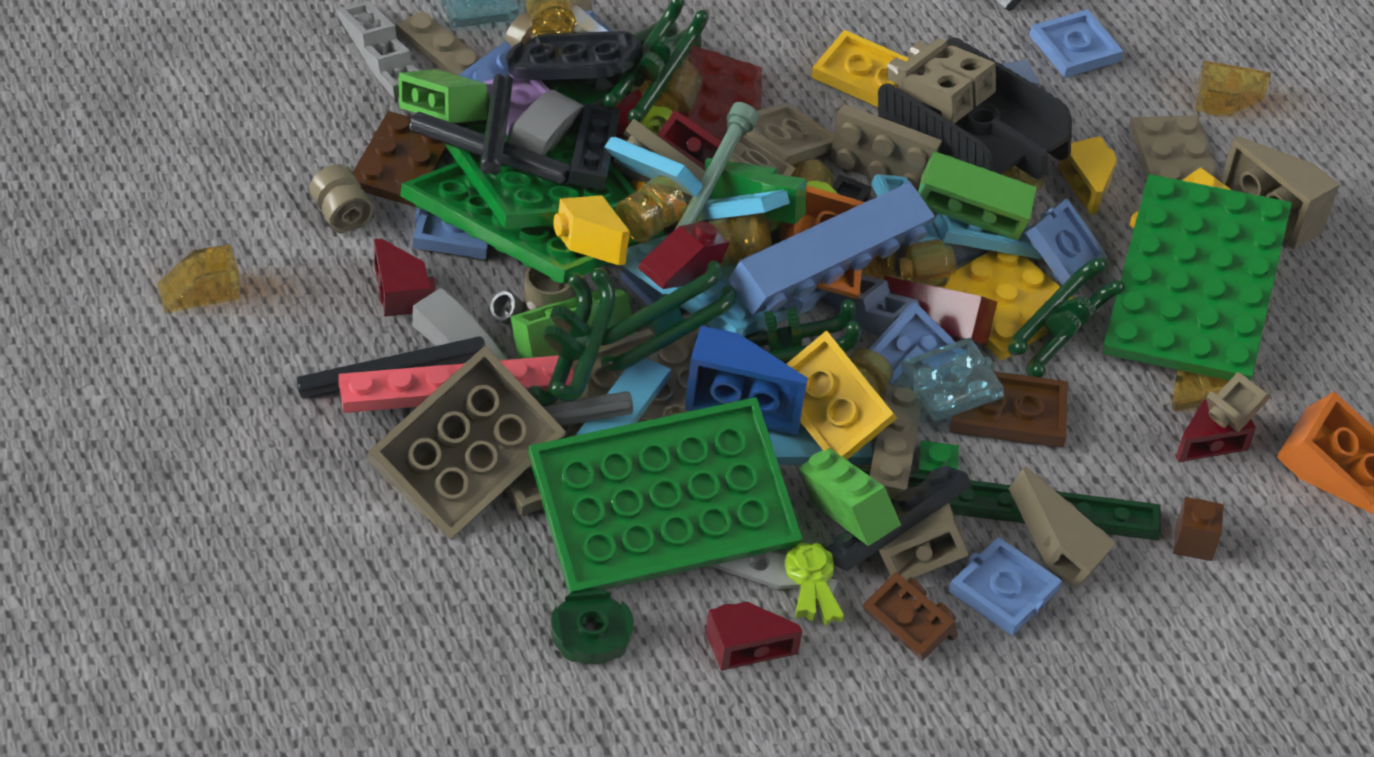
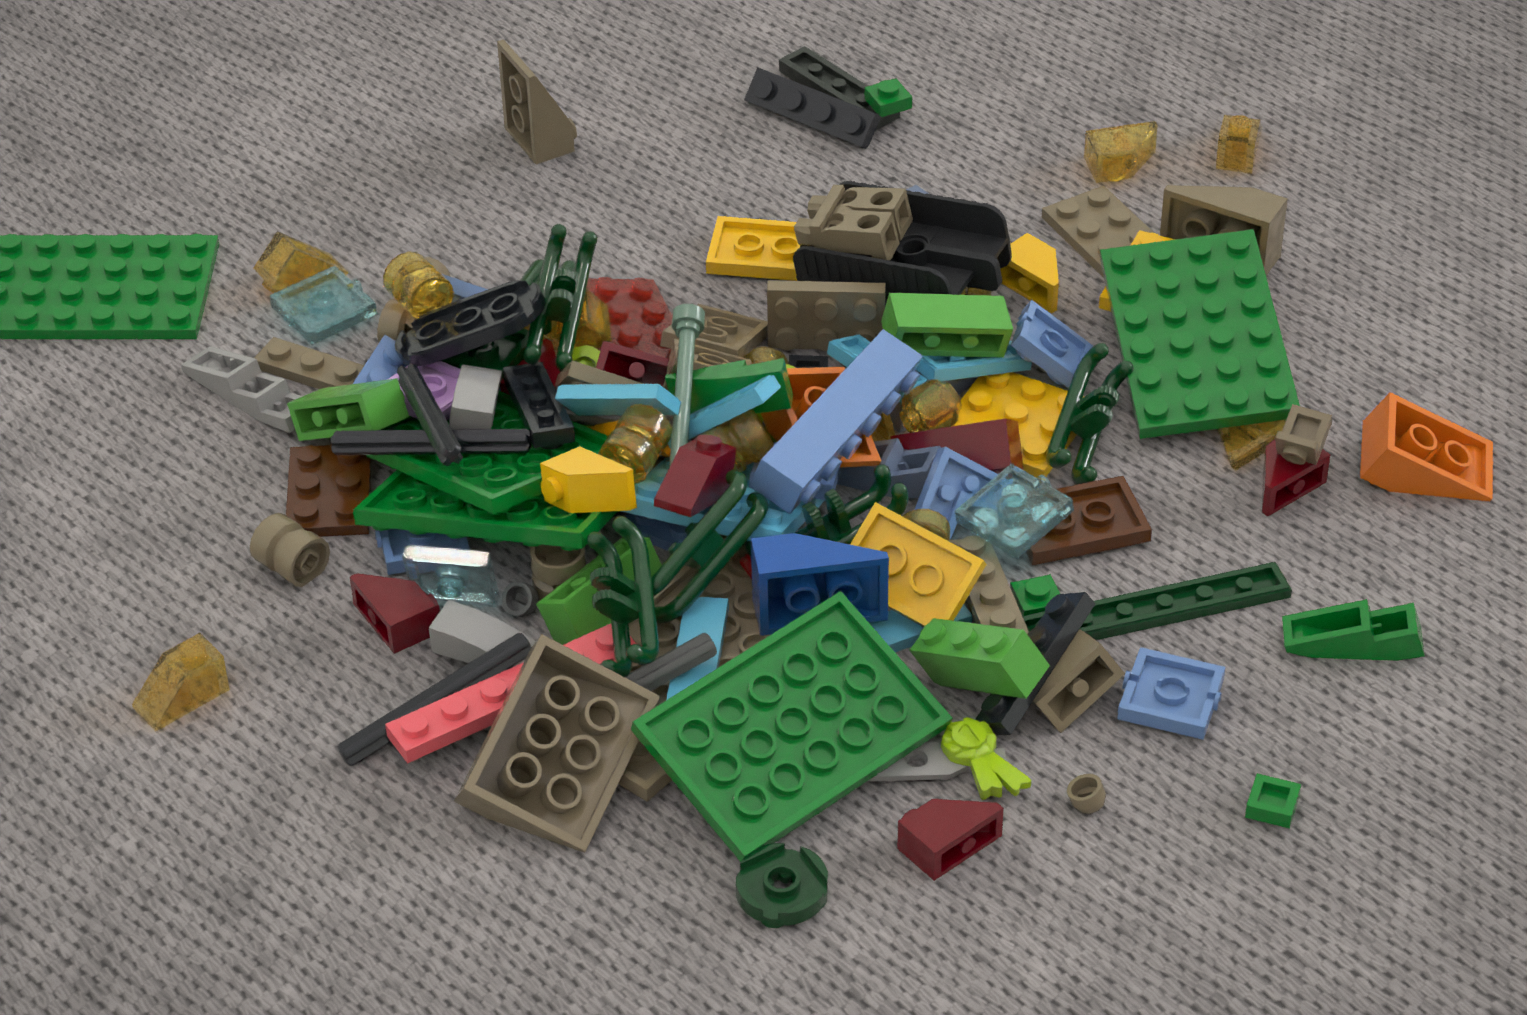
camera: 15 degrees left, 5 degrees down
(455, 267) = (453, 574): none -> clear light blue plate
(884, 645) = (1087, 793): none -> dark tan hinge
(910, 616) = (1087, 748): reddish brown bracket -> none
(1040, 710) = (1273, 800): none -> green plate
(1061, 533) = (1199, 620): dark tan slope -> none
(1076, 43) = (950, 156): medium blue plate -> none
(1194, 592) = (1355, 632): none -> green slope
(1198, 528) = (1327, 570): reddish brown brick -> none
(1338, 117) = (1238, 143): none -> clear yellow slope

